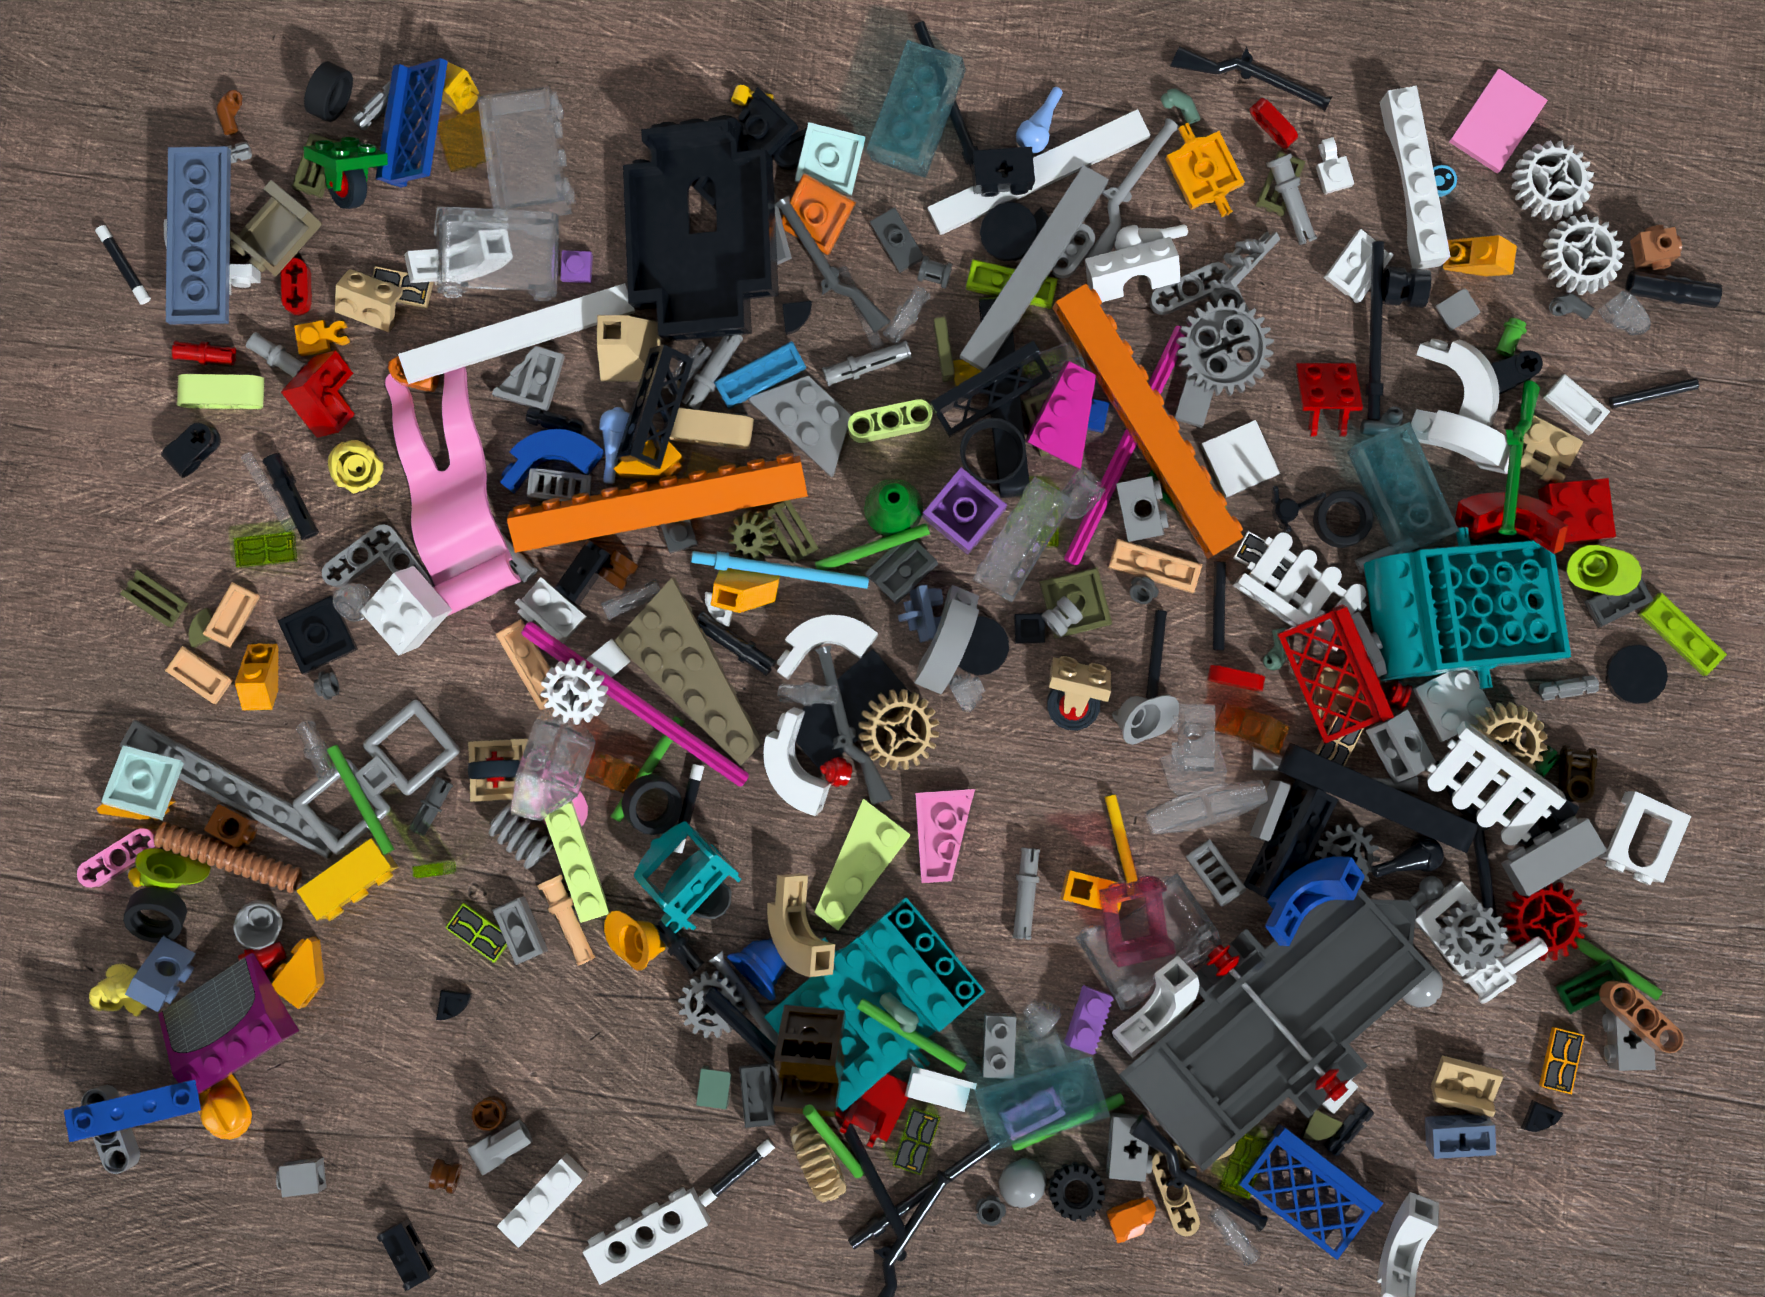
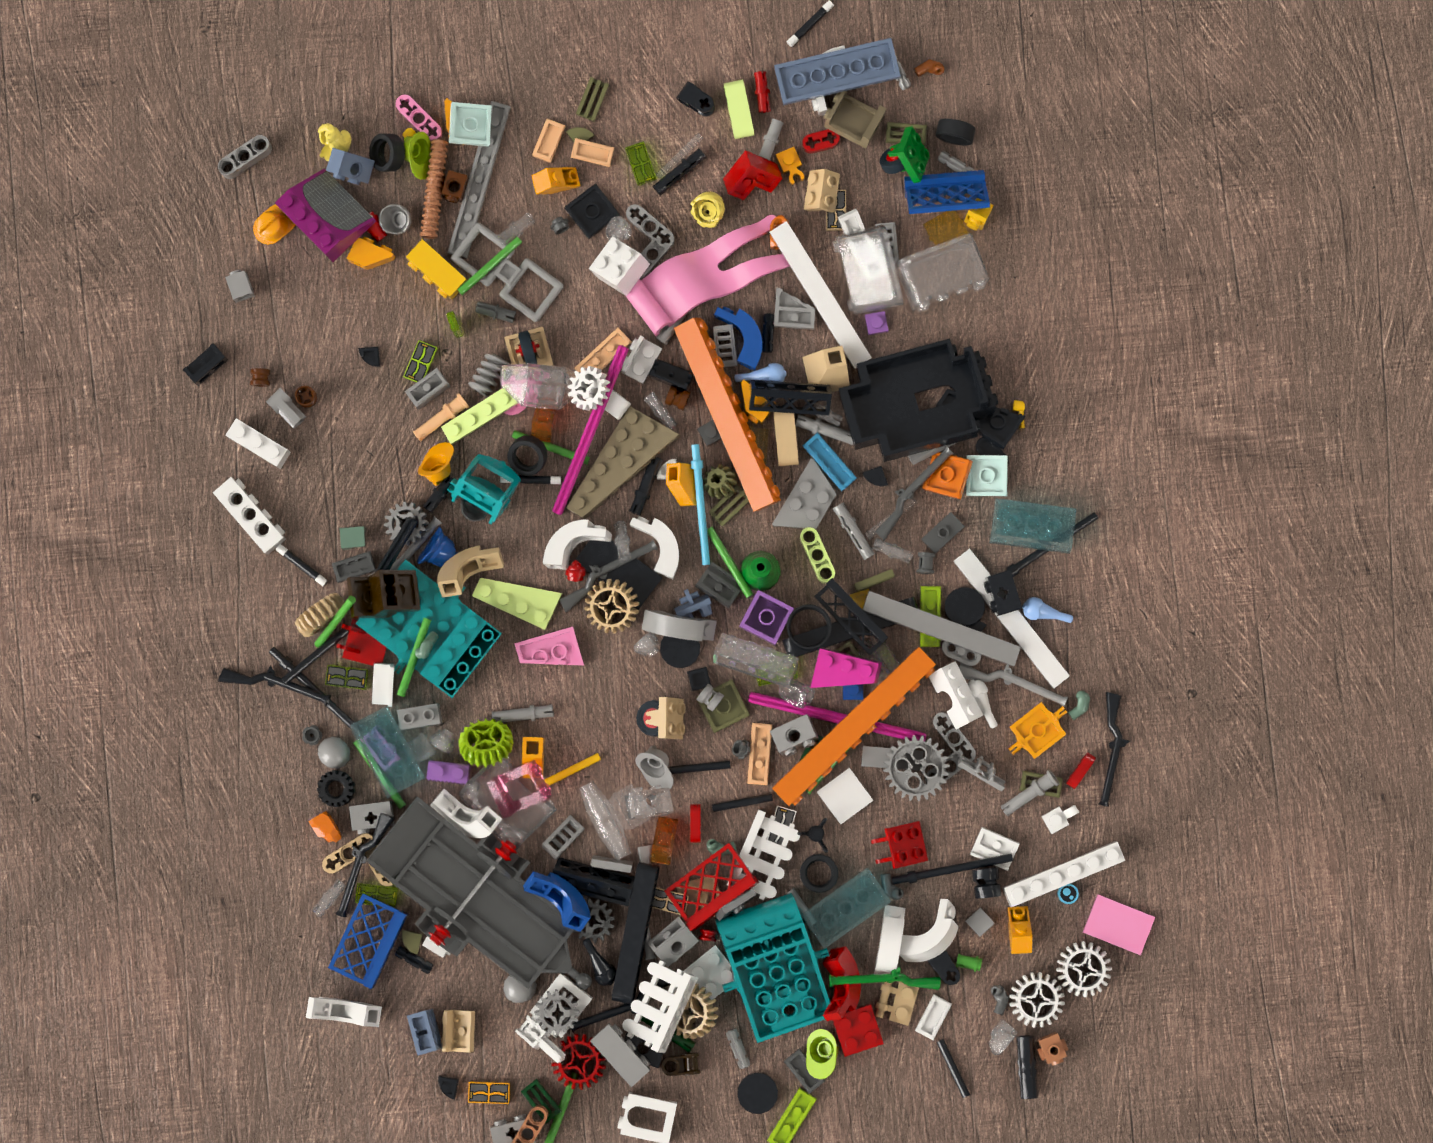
camera: 80 degrees right, 0 degrees up
(132, 1110) = (260, 170): blue fence -> none
(1069, 956) = (485, 736): none -> lime gear

